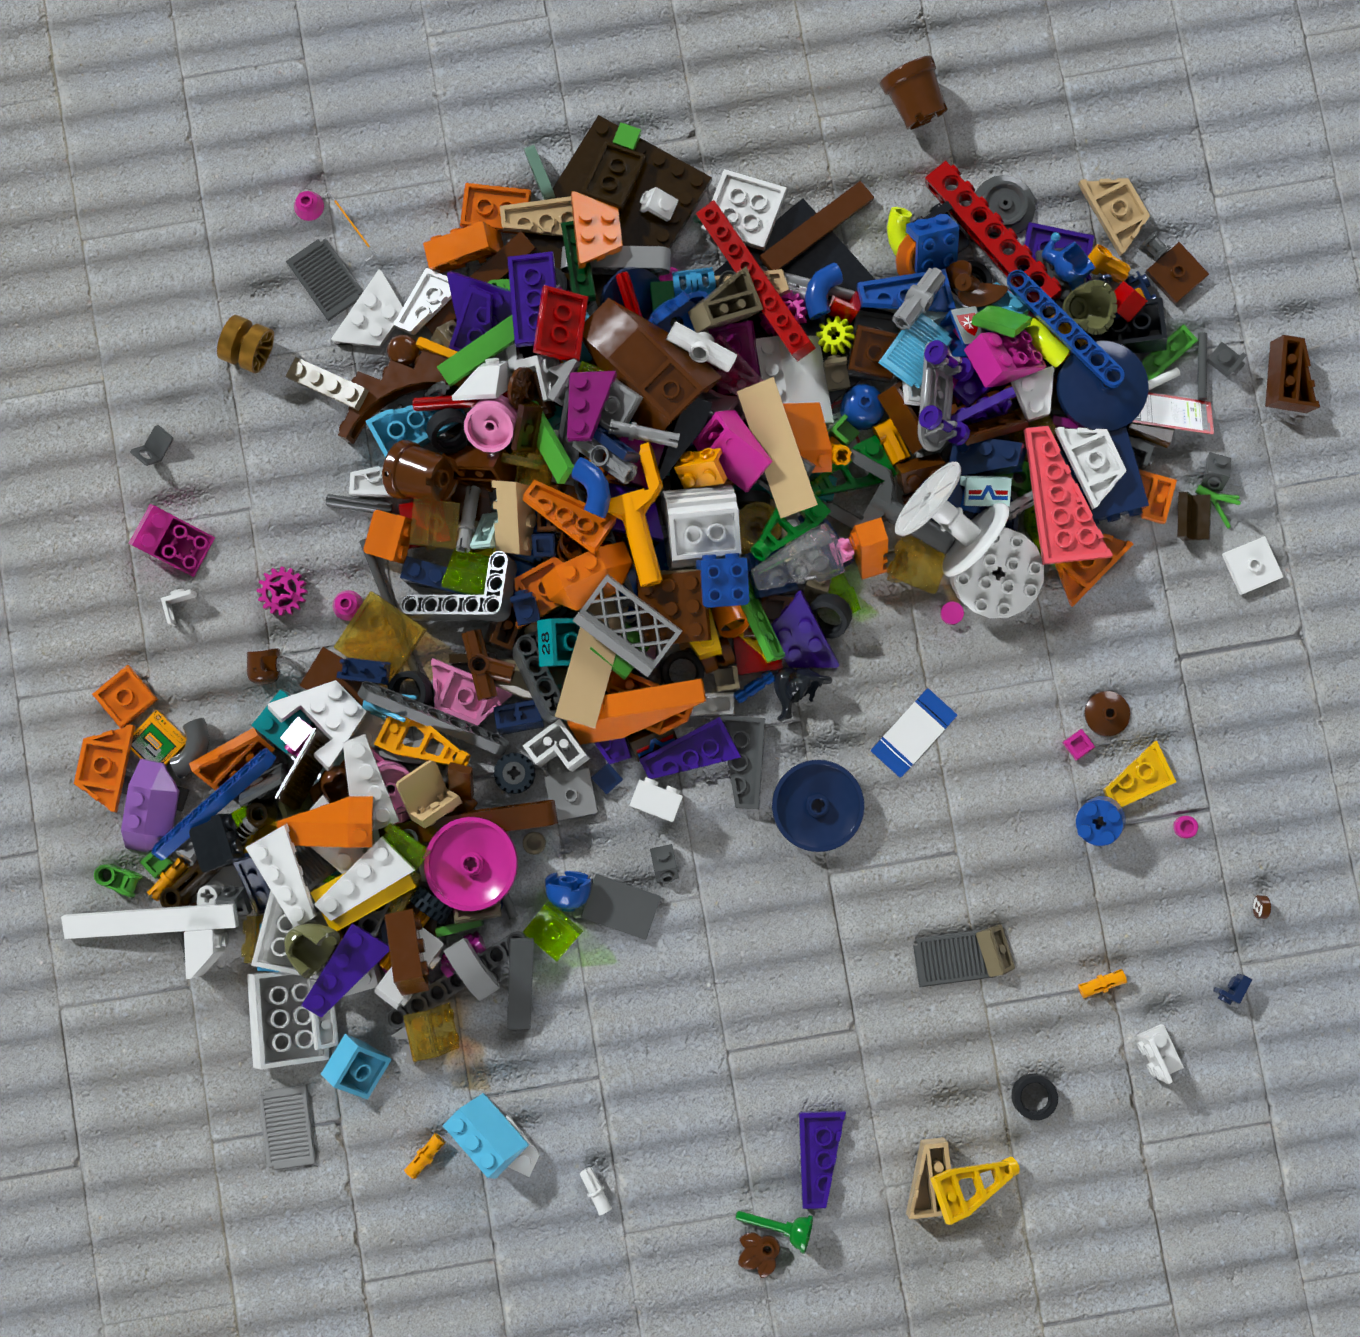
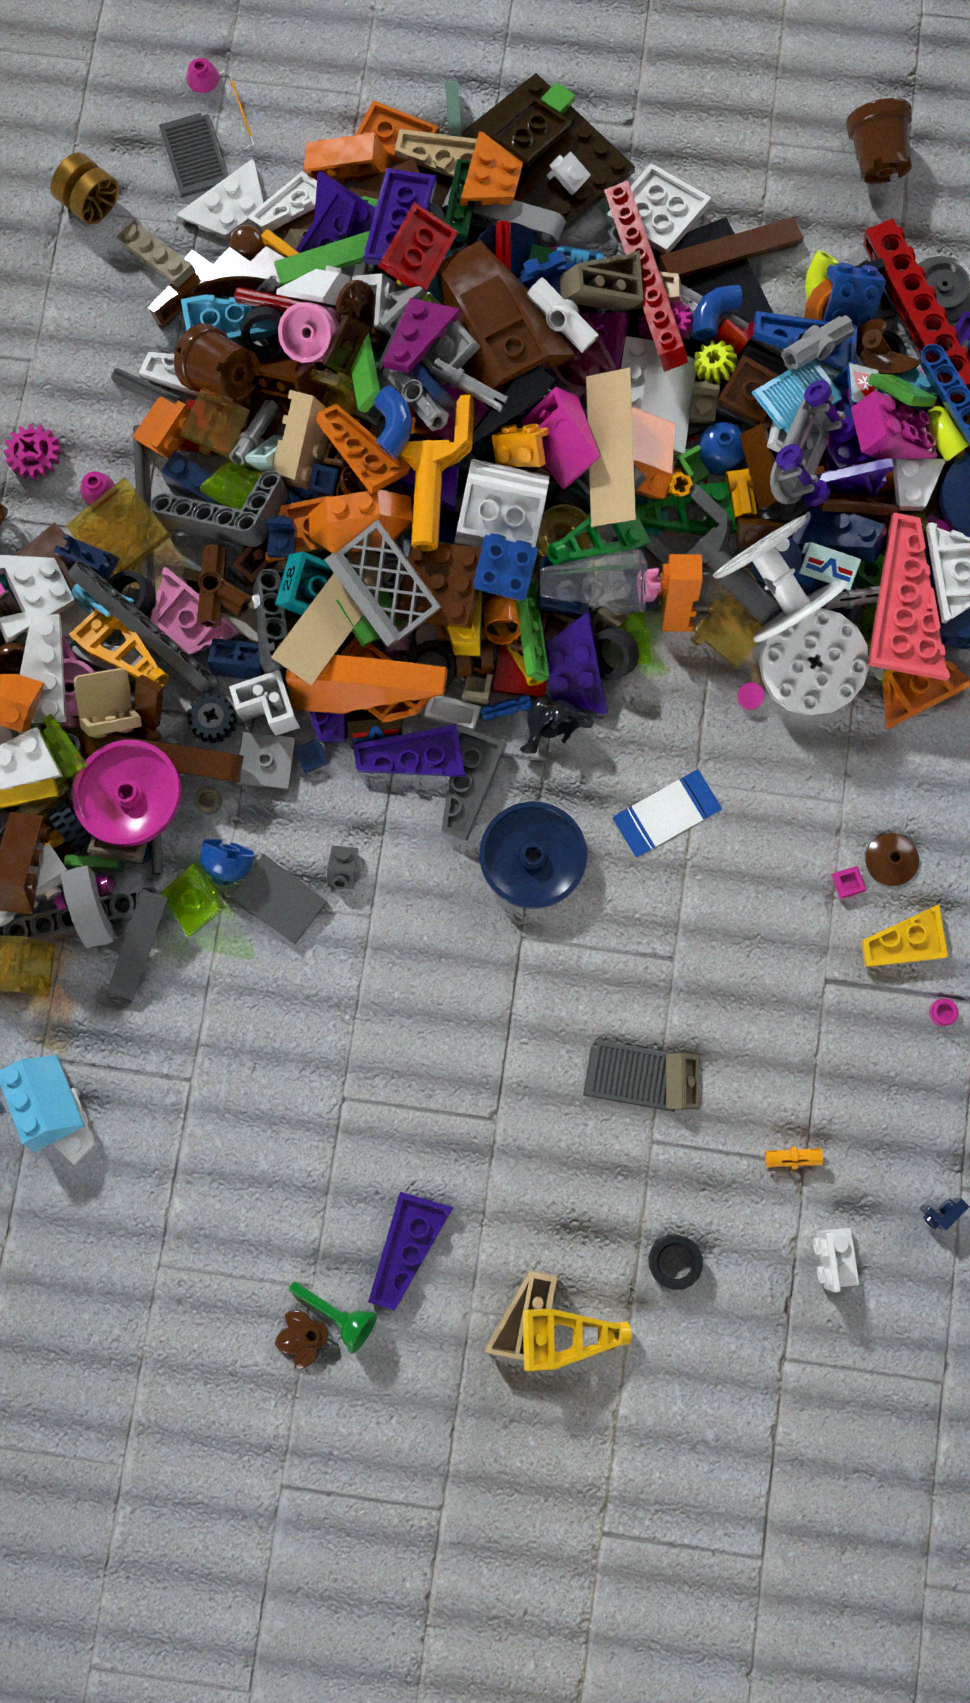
camera: 20 degrees right, 5 degrees down
(595, 1191) = (142, 1204): white axle -> none
(656, 800) = (355, 791): white brick -> none
(1088, 826) = (831, 972): blue brick -> none

